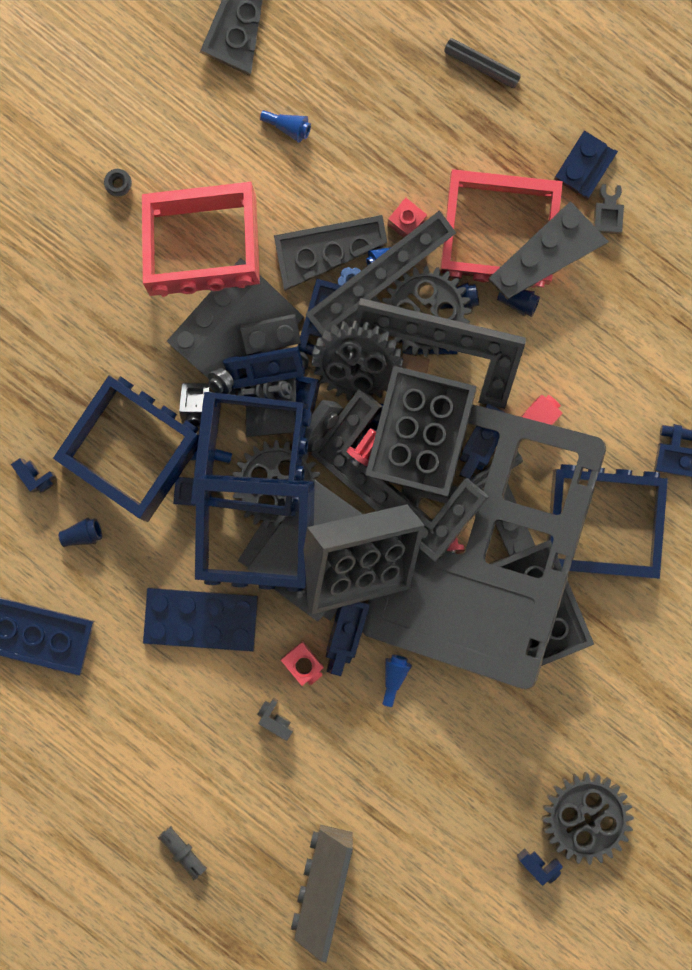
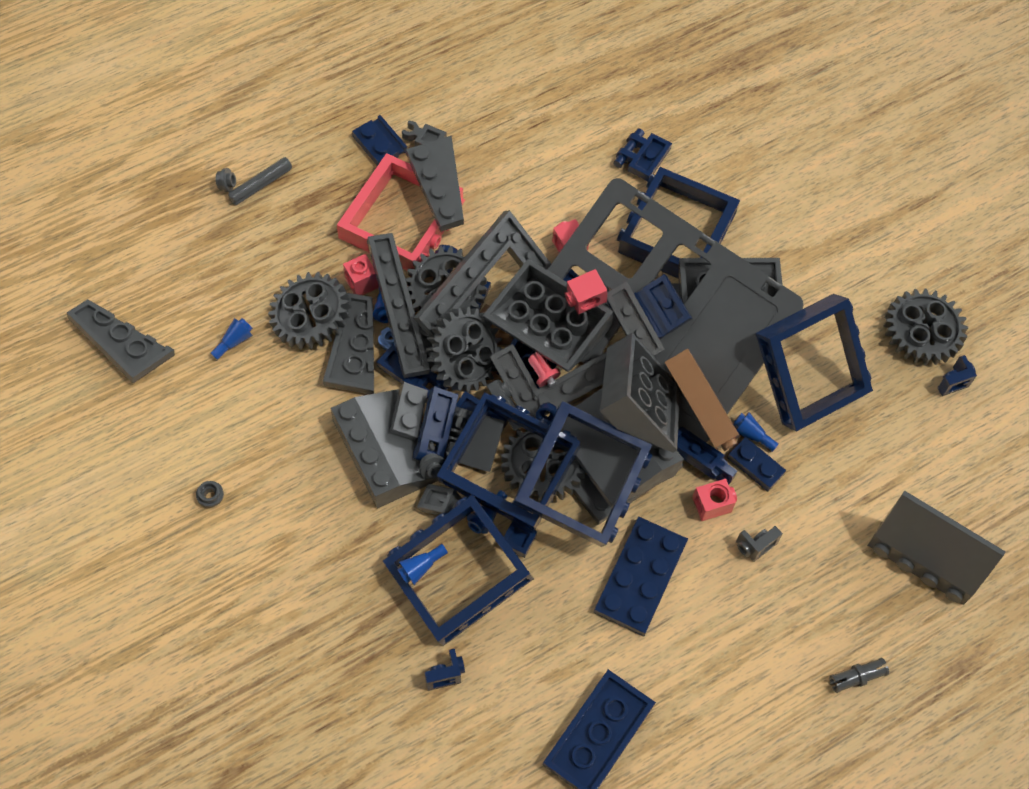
camera: 75 degrees left, 25 degrees down
(82, 533) = (519, 649): dark blue cone -> none
(107, 409) = (415, 567): none -> blue cone
(194, 201) = (264, 422): coral window -> none
(323, 469) = (542, 409): none -> dark blue hinge
(330, 170) = (287, 318): none -> dark grey gear
(361, 692) = (756, 464): none -> dark blue plate
(394, 617) = (703, 400): none -> medium nougat slope
(451, 461) = (586, 292): none -> coral brick
(465, 27) = (225, 180): none -> dark grey plate
(478, 543) = (663, 306): none -> dark blue plate
(501, 691) = (778, 372): none -> dark blue window
(523, 303) = (472, 219): dark blue cone -> none

